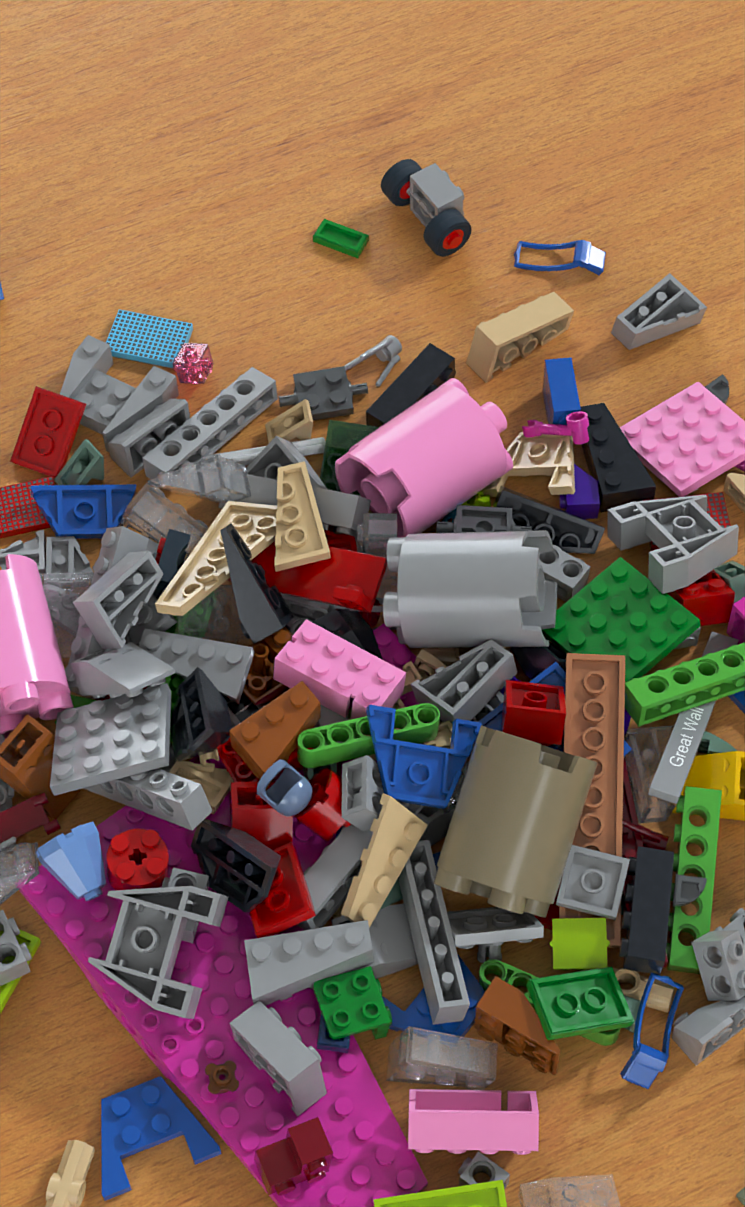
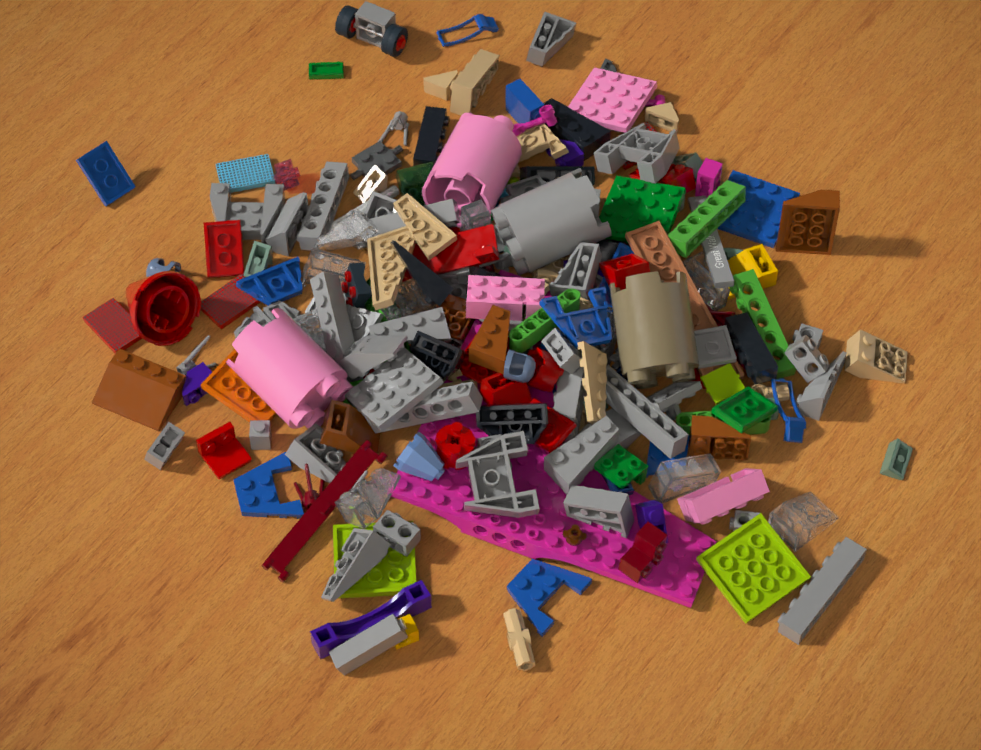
camera: 30 degrees left, 5 degrees down
(118, 596) = (346, 312): light grey wedge -> none
(344, 1111) = (651, 512): none -> dark purple slope
(469, 316) = (440, 84): none -> tan slope
(687, 889) = (765, 328): dark grey tile -> none

